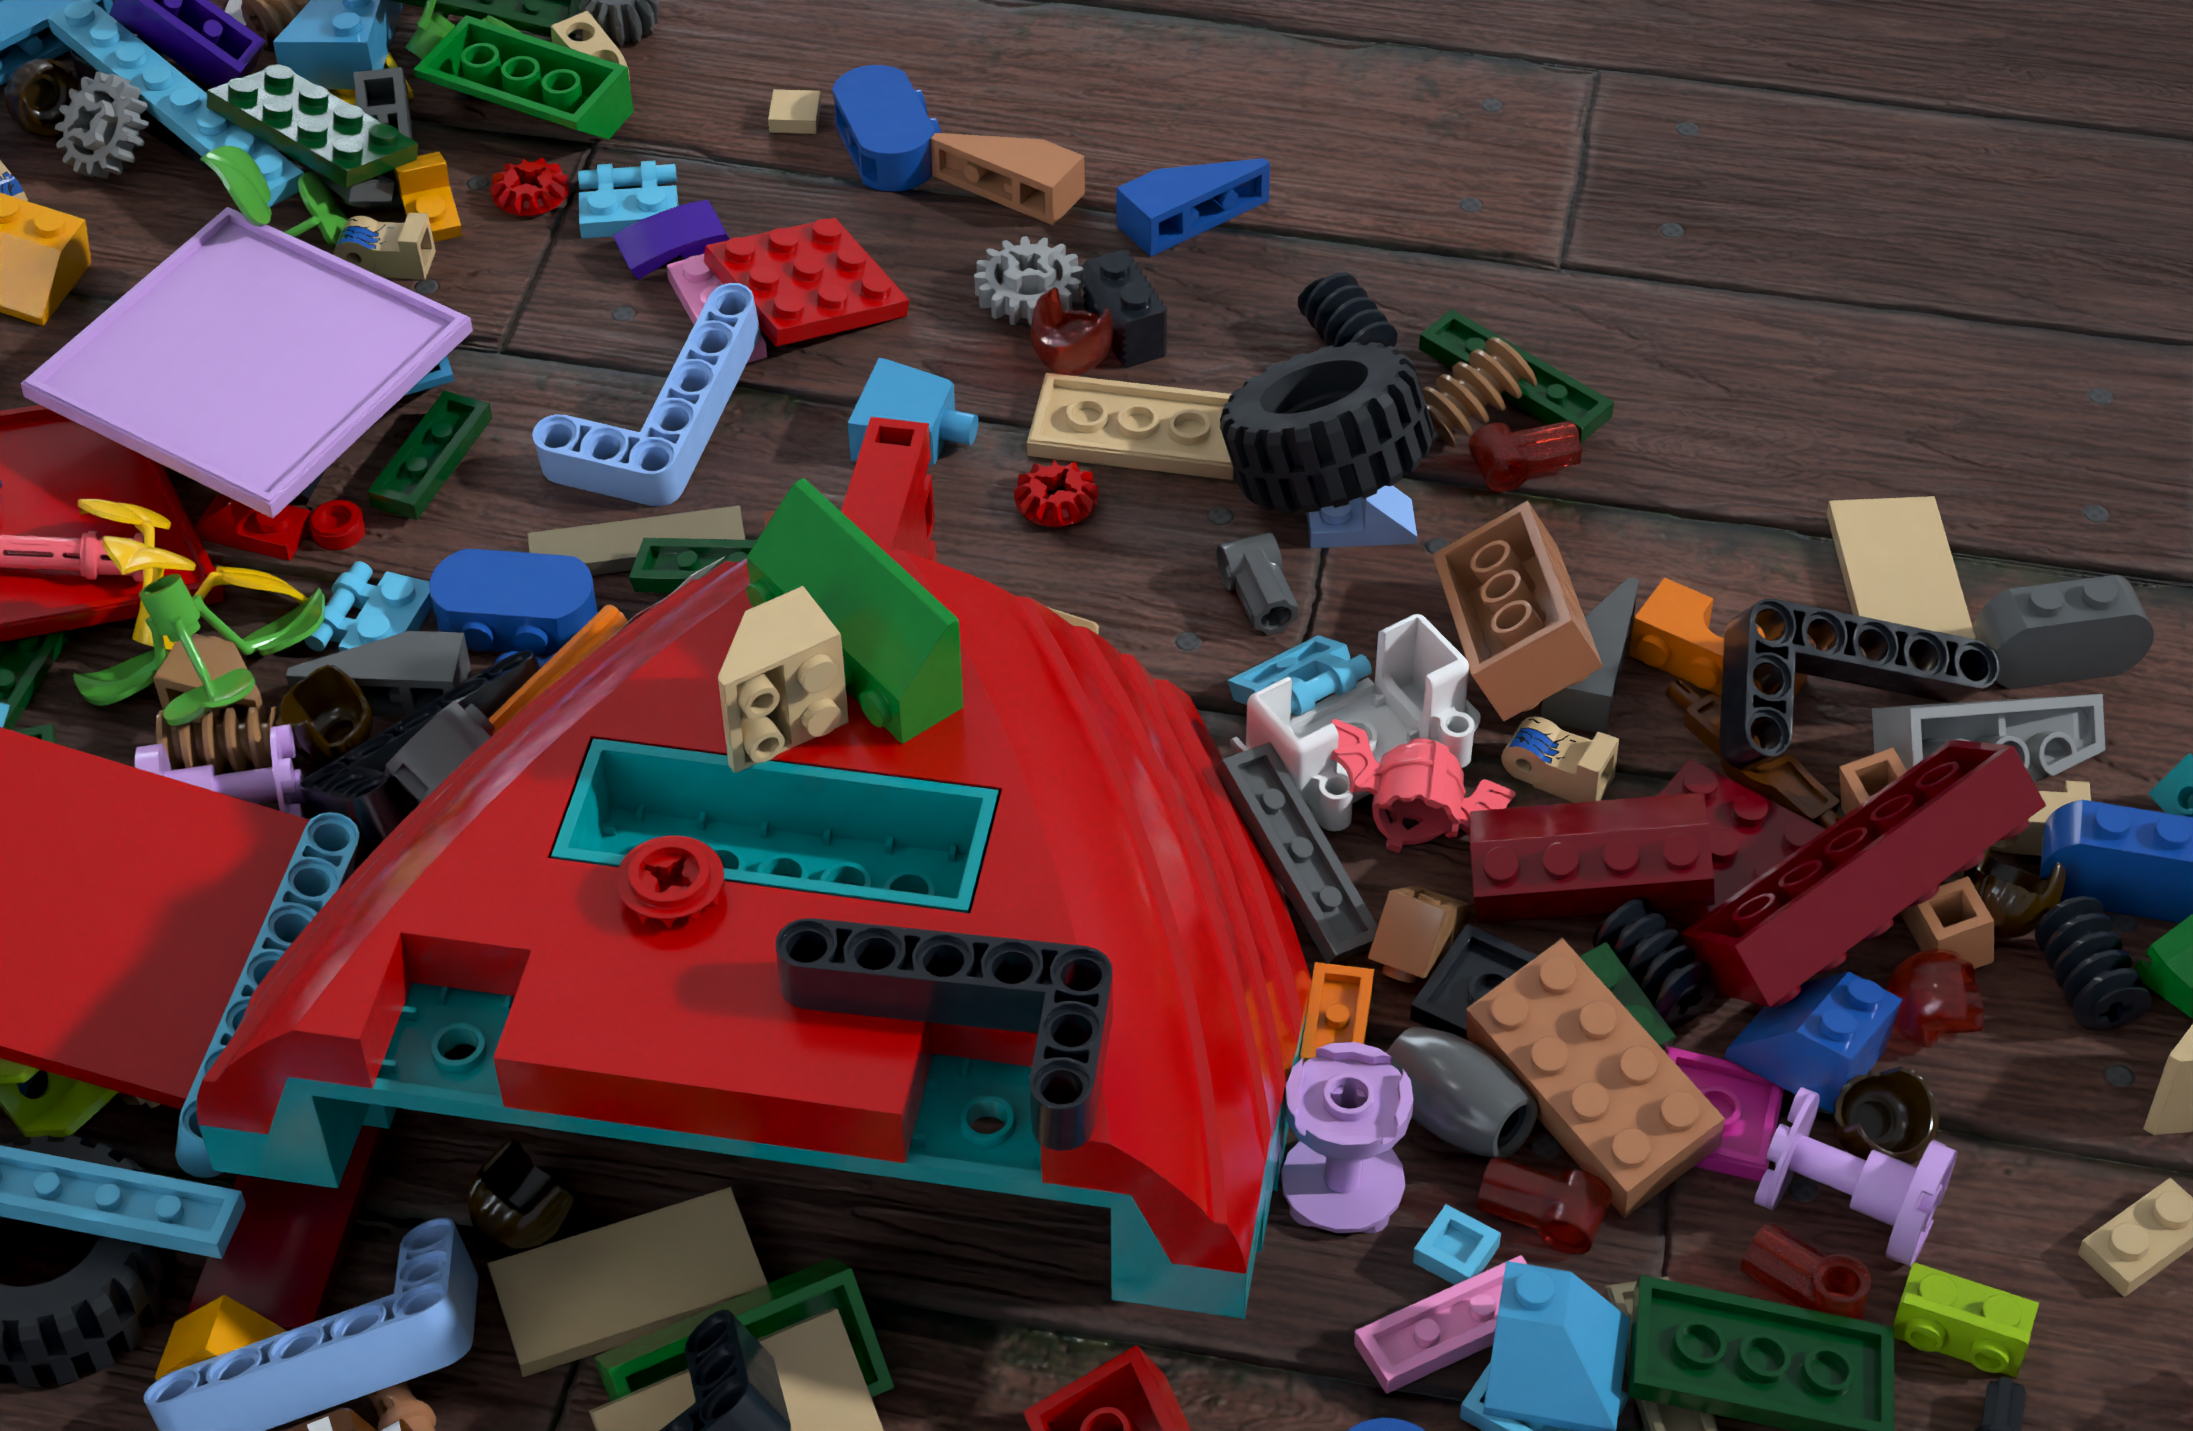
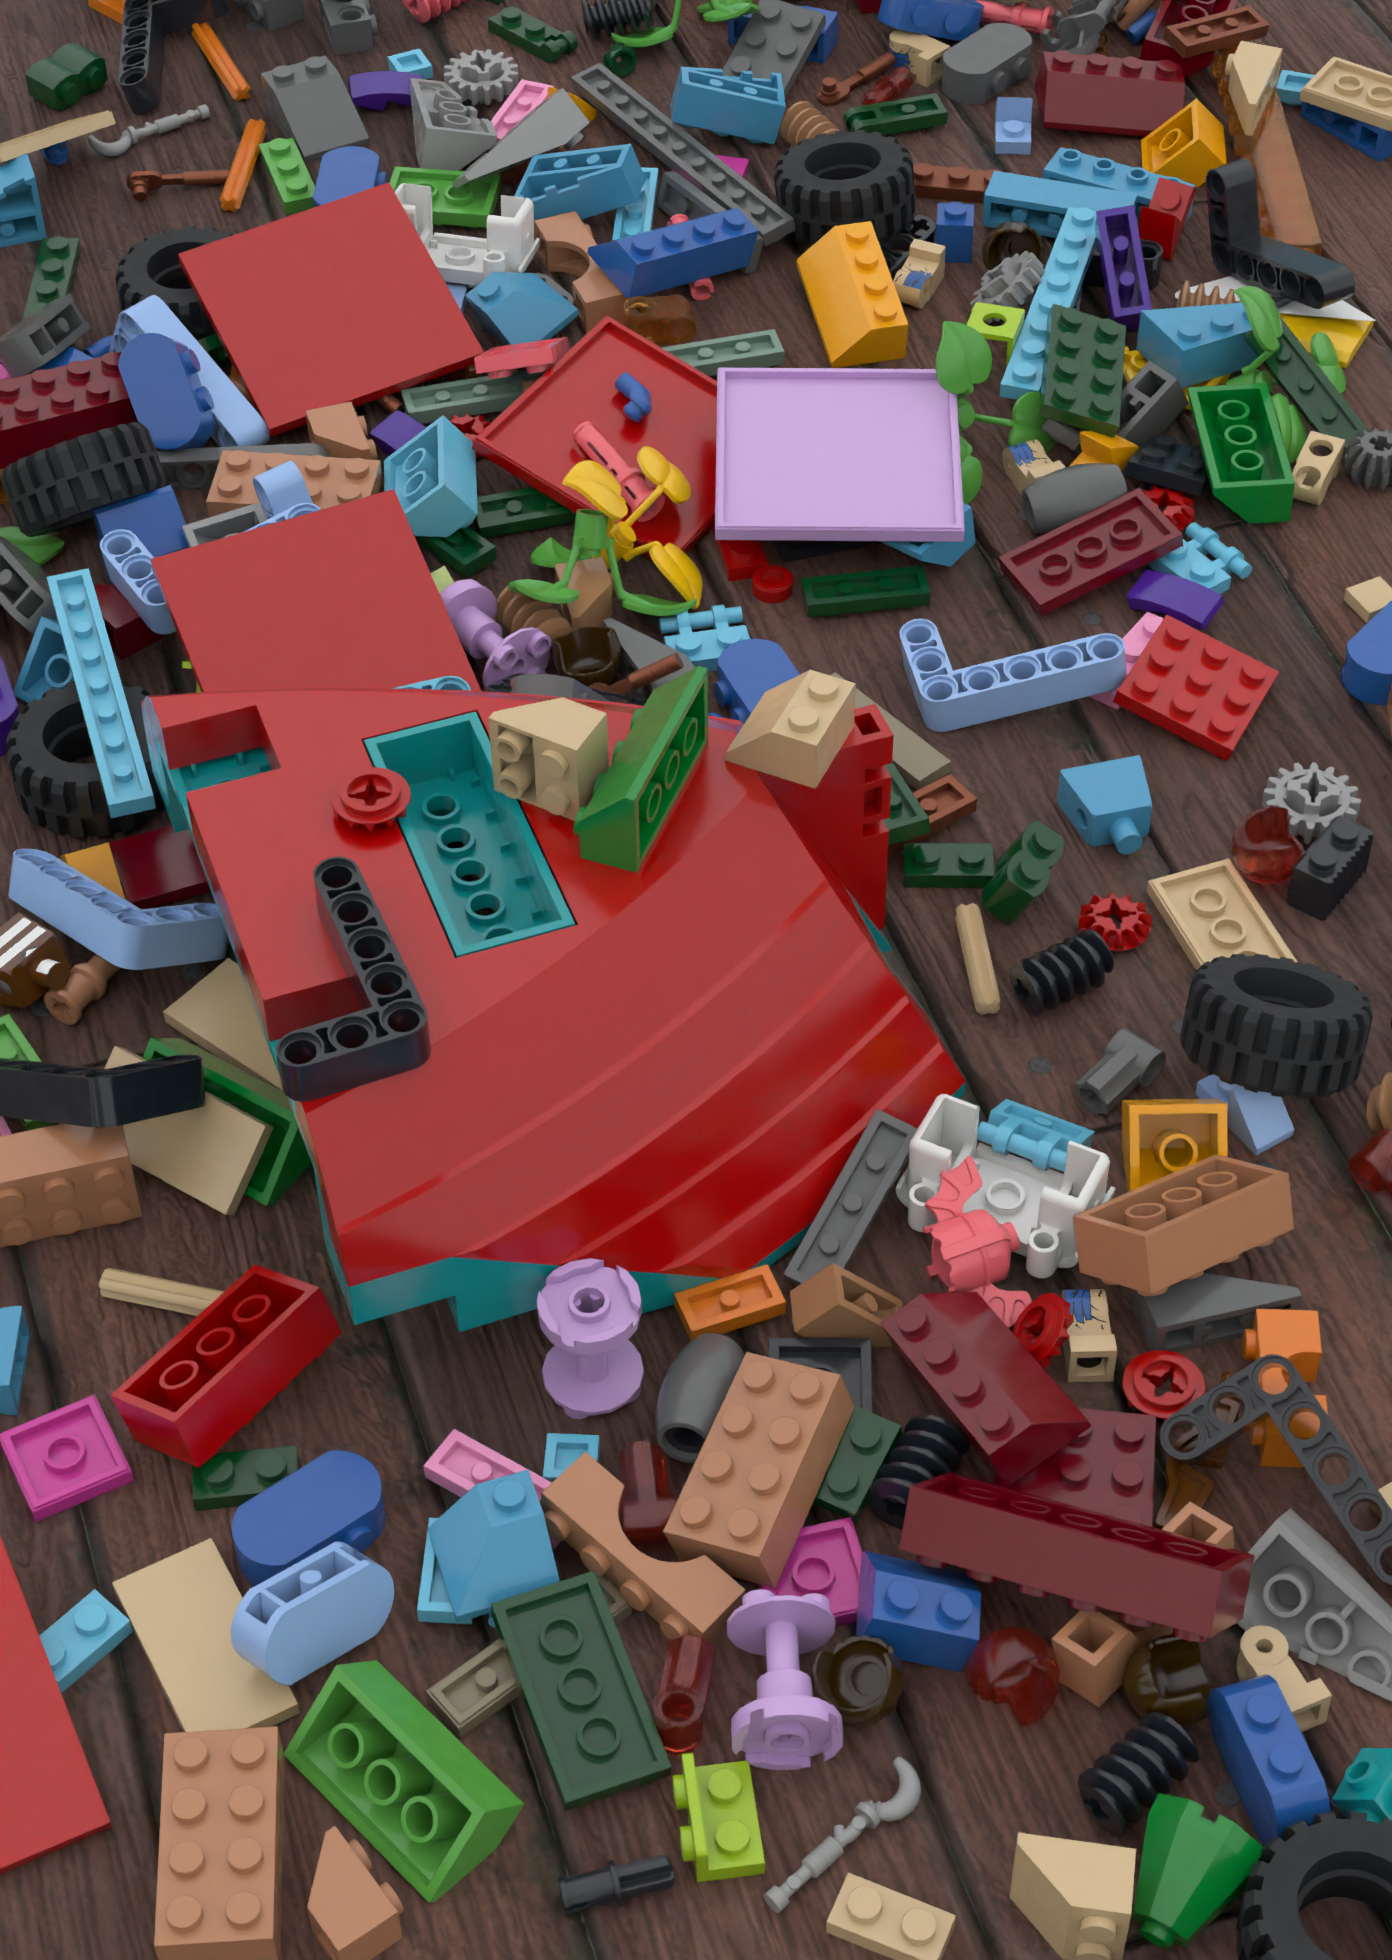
camera: 60 degrees right, 0 degrees up
(157, 170) = (1007, 332): none -> lime piece
(415, 677) = (645, 675): none -> copper piece
(467, 232) = (1070, 494): none -> dark grey piece
(486, 143) = (1169, 465): none -> black plate
(552, 260) = (1090, 551): none -> dark red plate
(883, 473) = (797, 728): none -> tan slope
(966, 521) = (1022, 872): none -> dark green brick
(1105, 557) = (1061, 971): none -> black piece
(1378, 579) = (1170, 1135): none -> light orange slope
(1525, 775) = (1045, 1317): none -> red gear
(1659, 722) = (1152, 1370): none -> red gear
(1701, 1223) = (681, 1596): none -> nougat arch
(2020, 1198) = (867, 1815): none -> light grey piece

